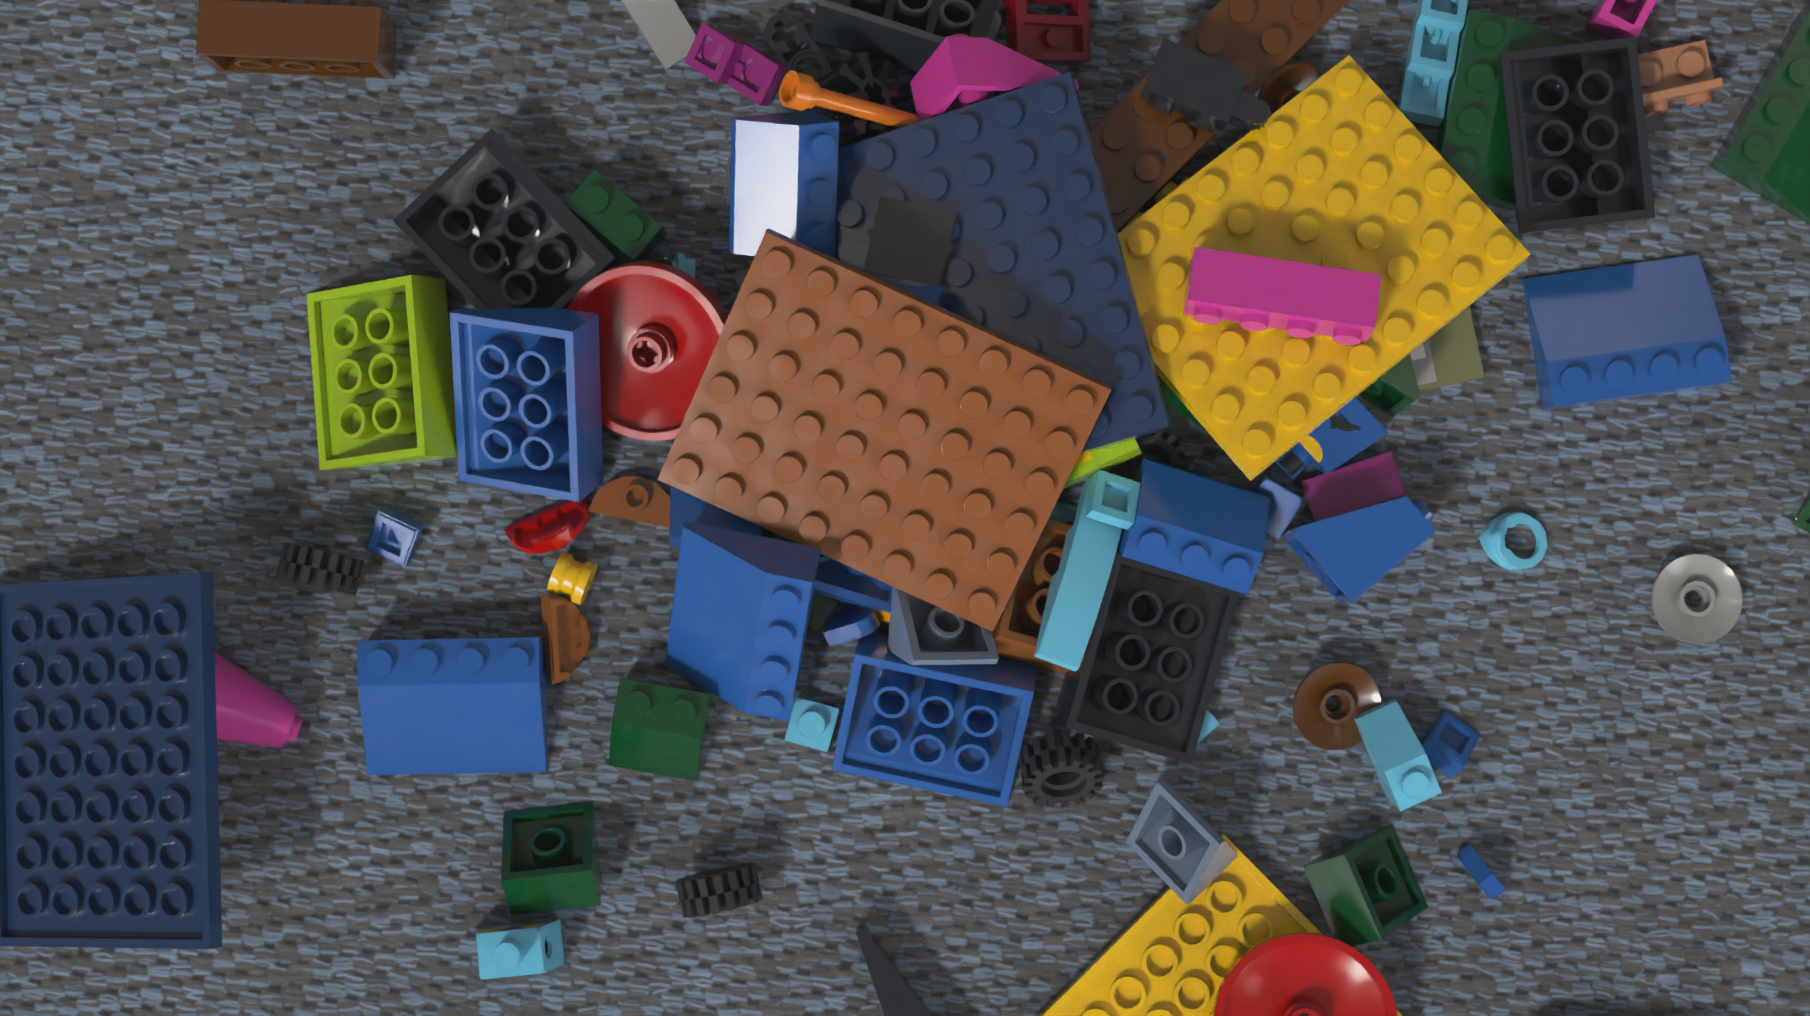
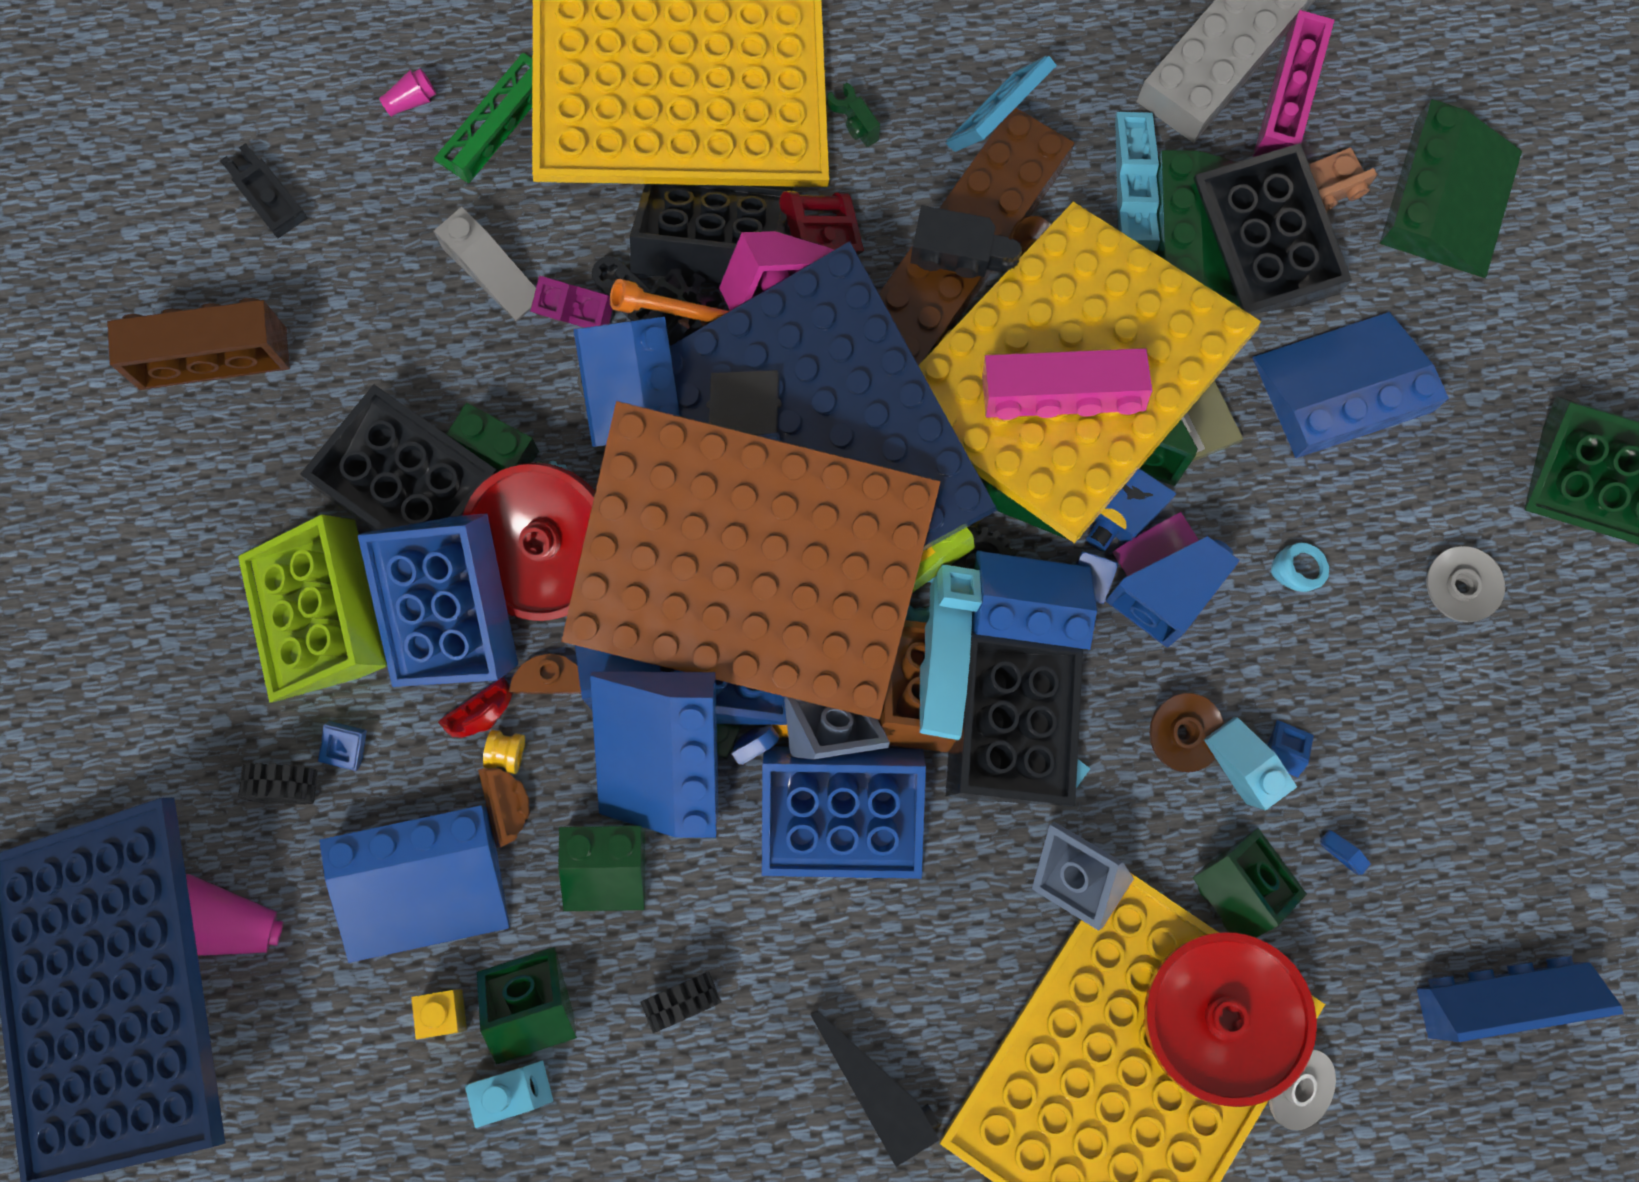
camera: 15 degrees left, 10 degrees down
(458, 850) = (439, 1014): none -> yellow brick
(812, 724) = (737, 839): medium azure plate -> none
(1061, 769) = (978, 828): black tyre -> none

